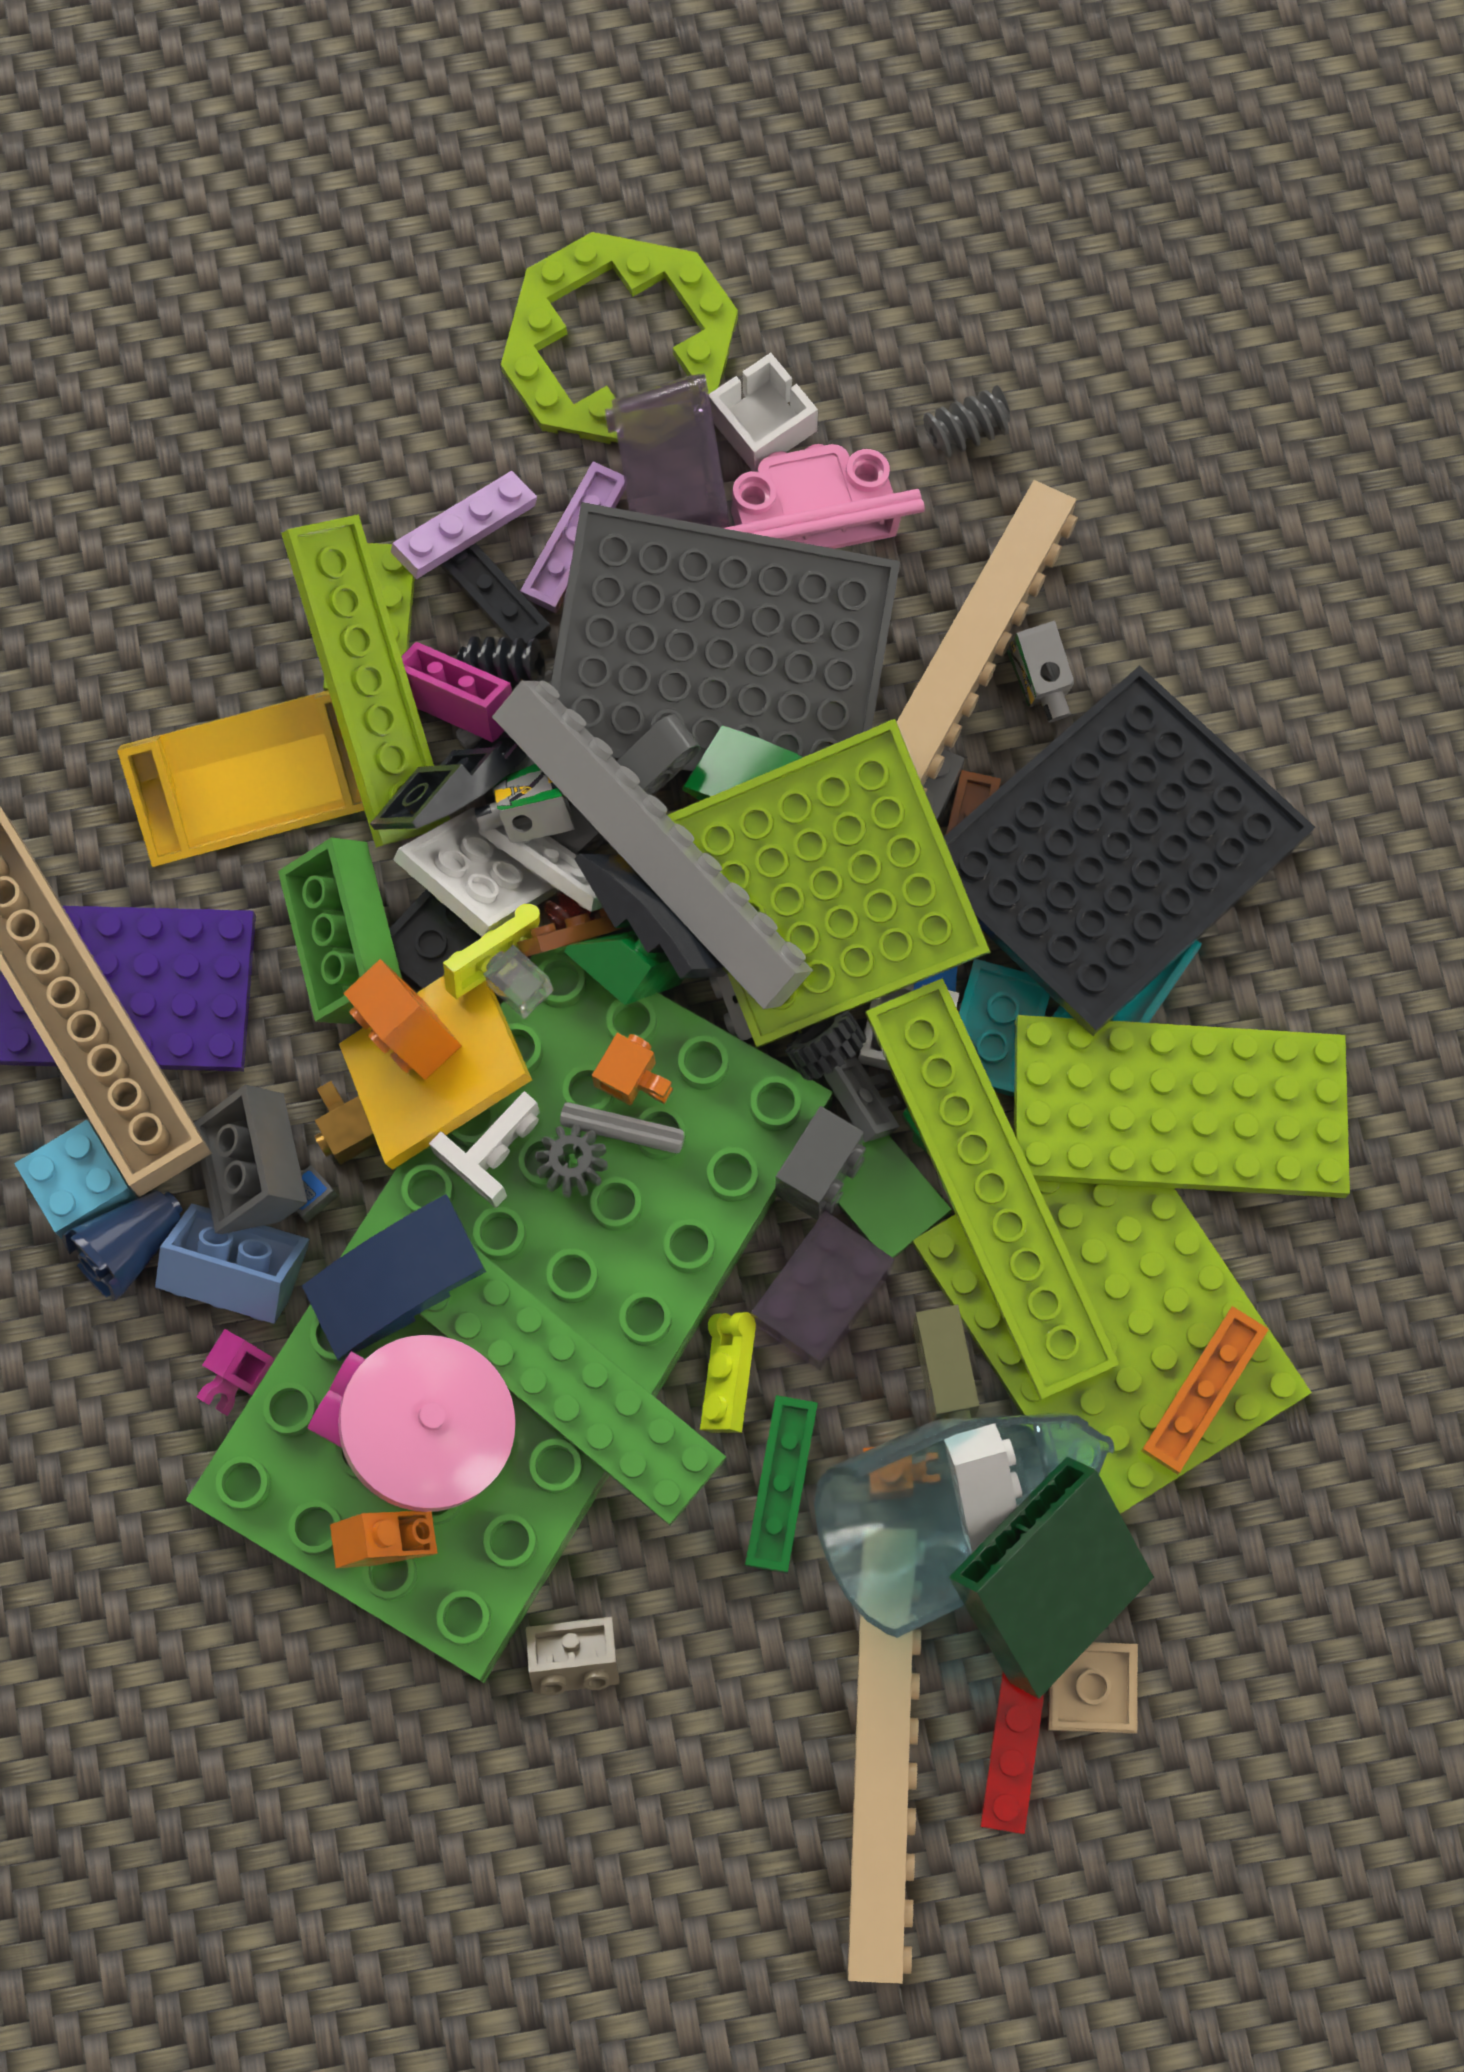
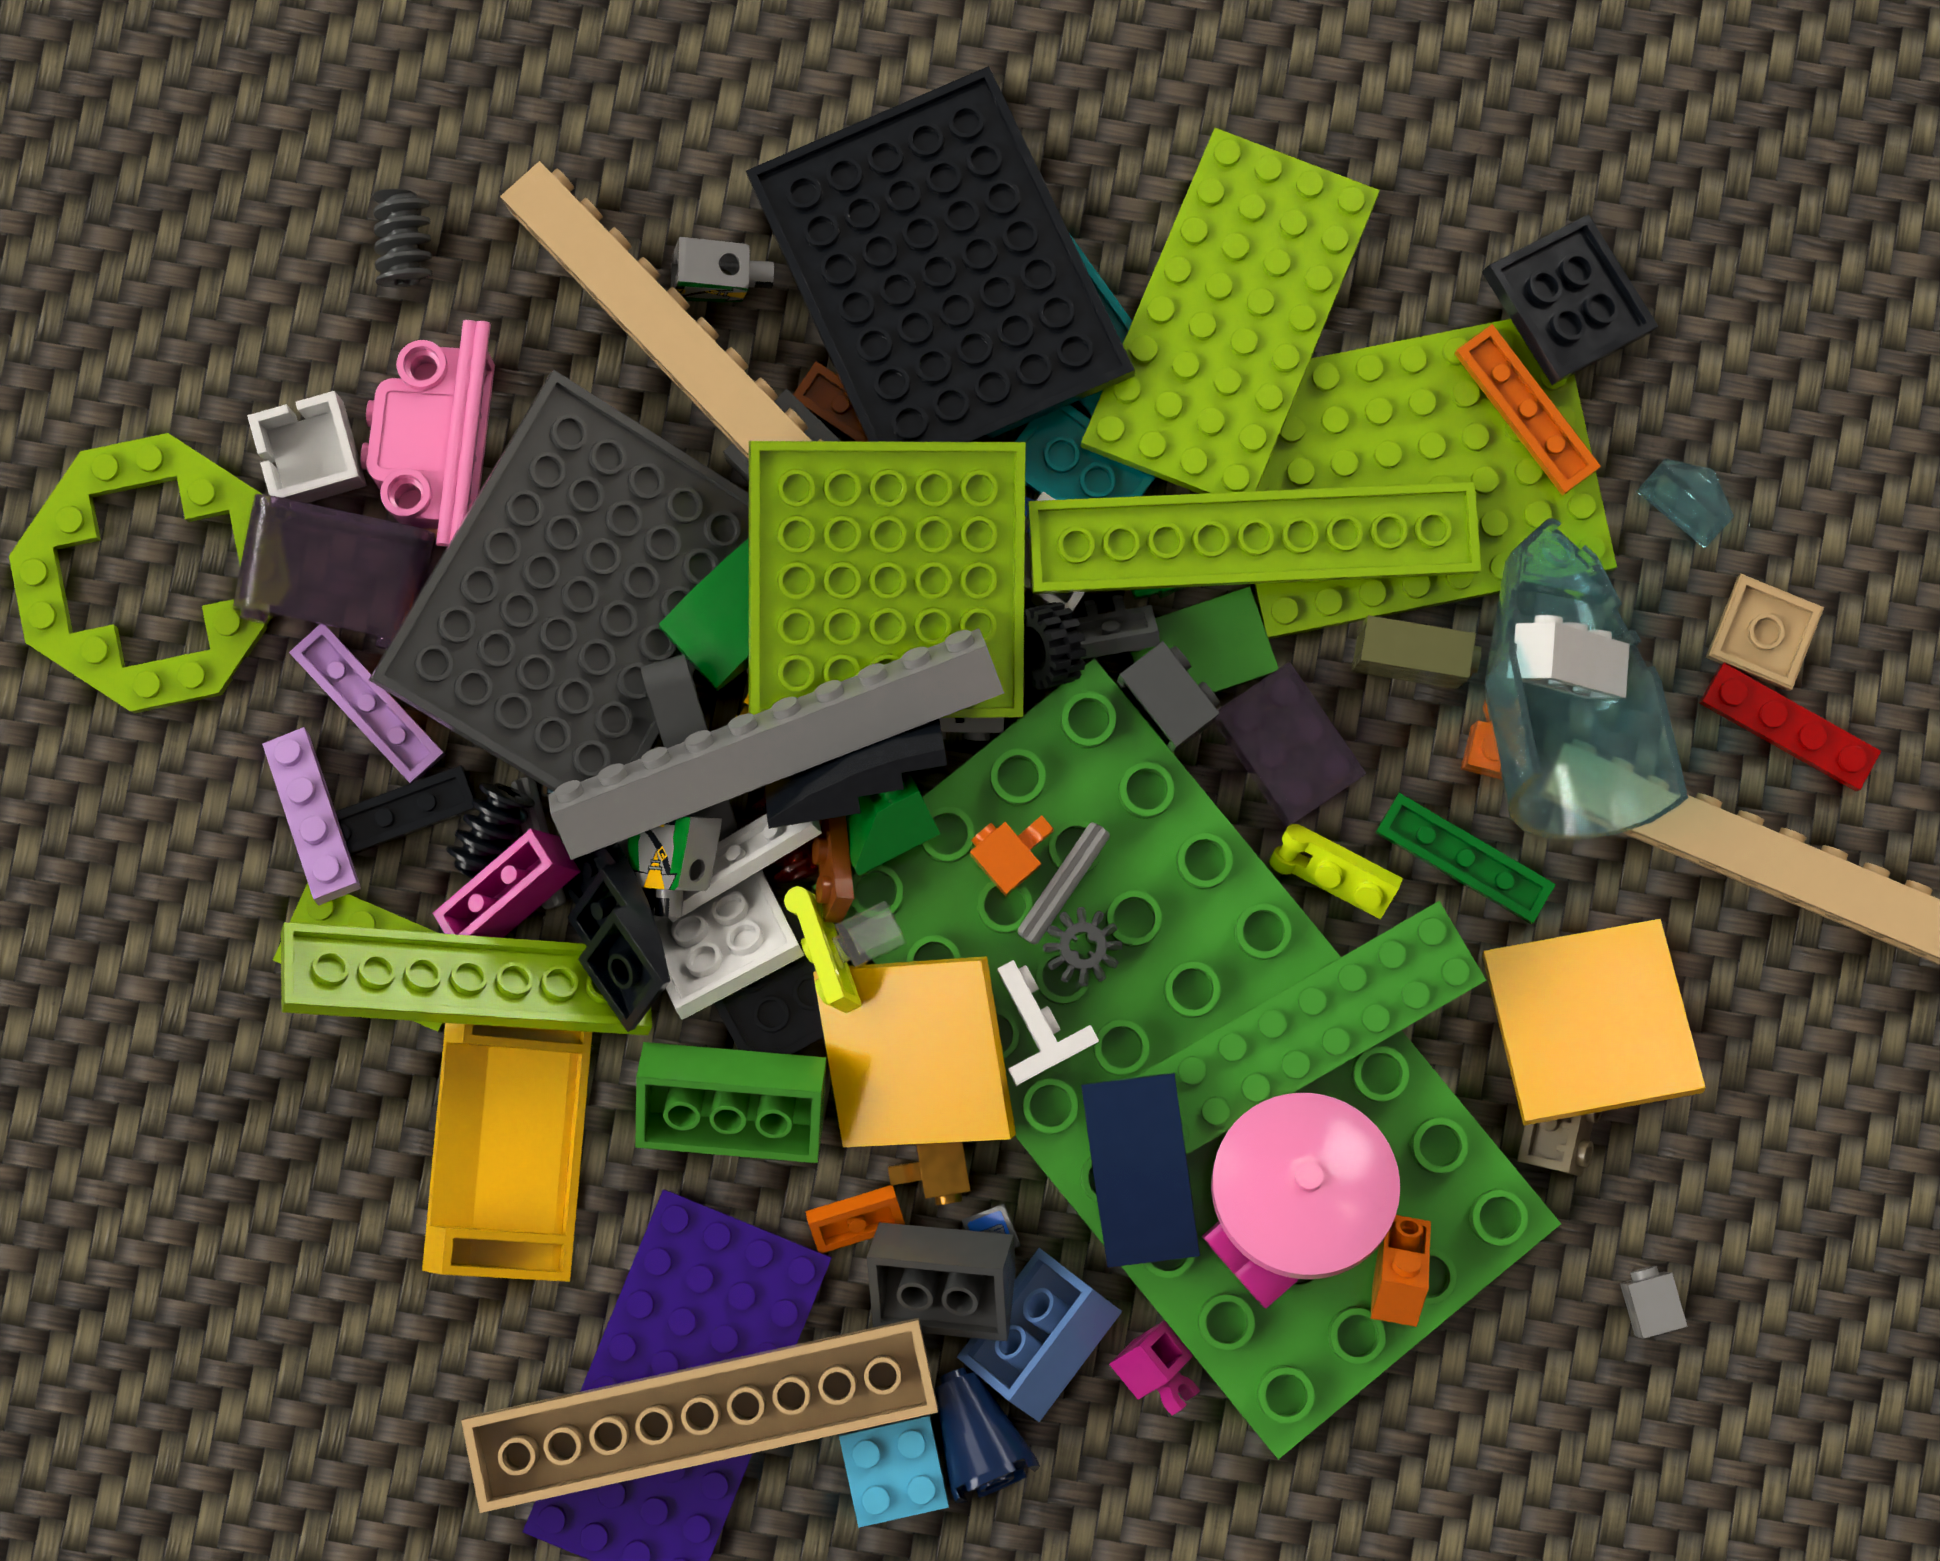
camera: 75 degrees left, 10 degrees up
(280, 1072) = (853, 1218): none -> orange plate
(400, 1021) = (867, 1070): orange brick -> none
(439, 1796) = (1653, 1302): none -> light grey brick
(673, 1648) = (1593, 1022): none -> yellow tile
(1052, 1577) = (1666, 627): dark green brick -> none
(1188, 1571) = (1689, 498): none -> clear light blue slope
(1322, 1394) = (1570, 299): none -> black plate

